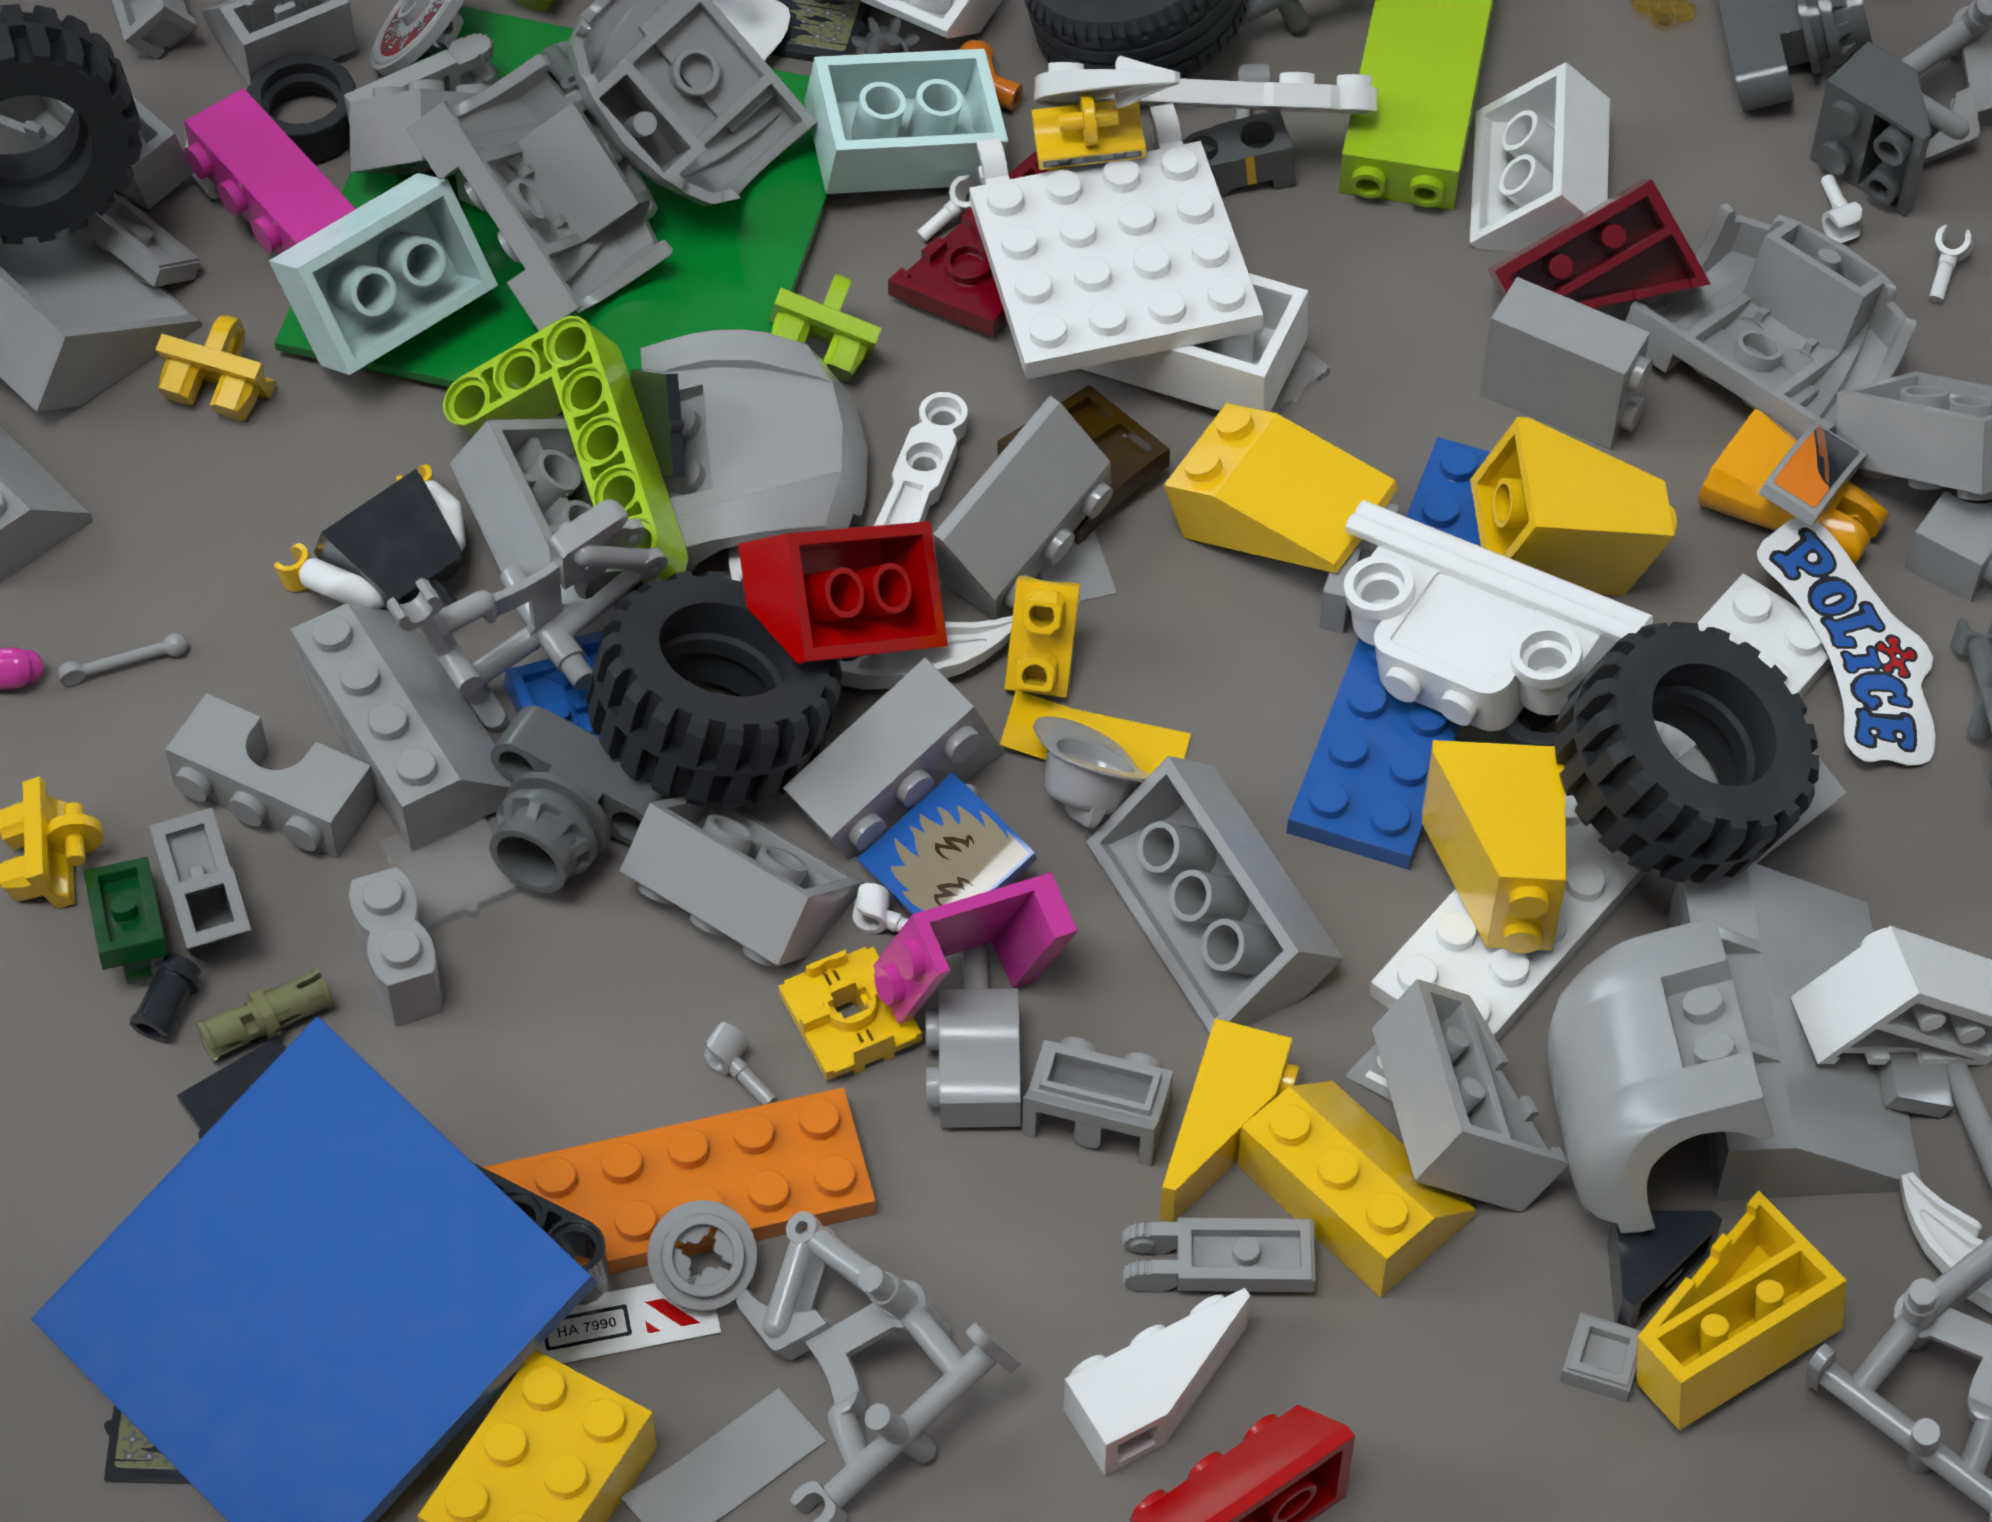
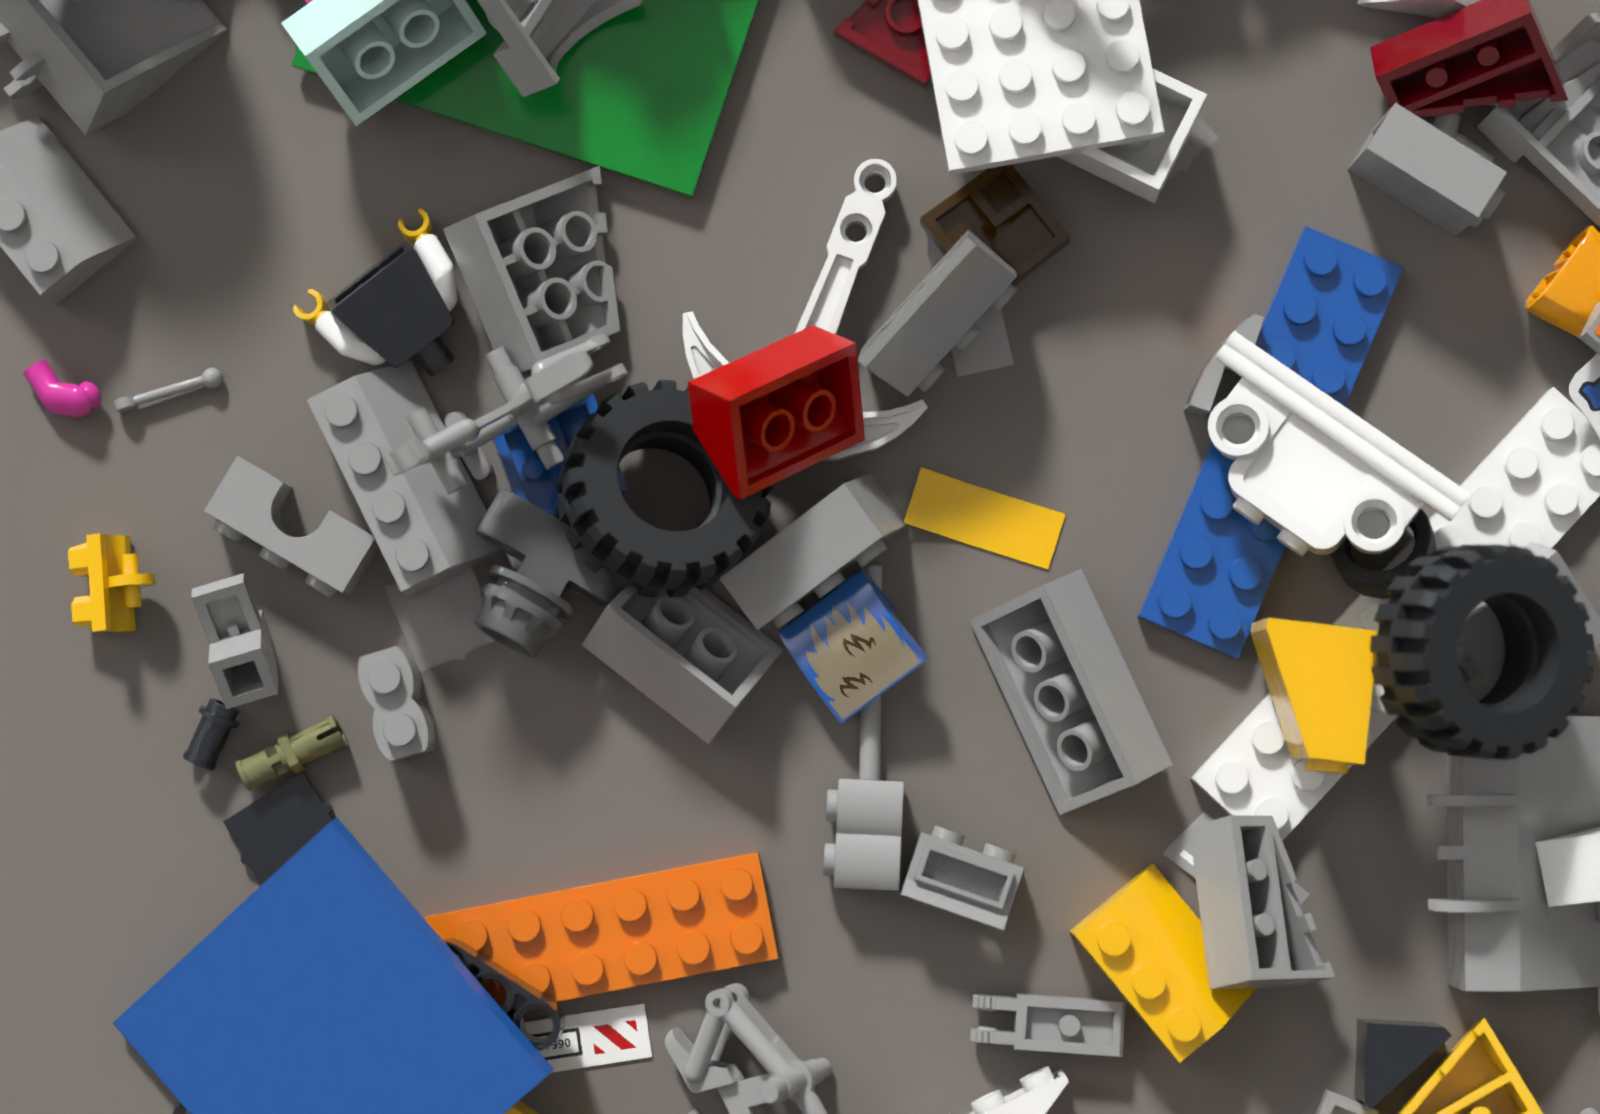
camera: 10 degrees right, 30 degrees up
(126, 917) = (175, 660): dark green plate -> none
(219, 362) = (218, 88): yellow hips -> none
(585, 376) = (565, 213): lime beam -> none
(660, 407) = (624, 206): black piece -> none
(714, 1285) = (646, 1025): light grey gear -> none
(723, 1057) = (662, 809): light grey hand -> none
(764, 440) = (707, 218): light grey piece -> none
(848, 336) = (795, 96): lime hips -> none
(848, 1042) = (797, 788): yellow piece -> none
(872, 910) = (789, 682): white hand -> none
(1022, 920) = (910, 728): dark pink panel -> none
(1042, 636) = (945, 434): yellow hips -> none
(1085, 769) = (977, 558): light grey piece -> none
(1235, 1081) = (1069, 889): yellow slope -> none
(1272, 490) = (1161, 294): yellow slope -> none
(1570, 509) = (1404, 348): yellow slope -> none
(1647, 1057) = (1415, 923): light grey piece -> none

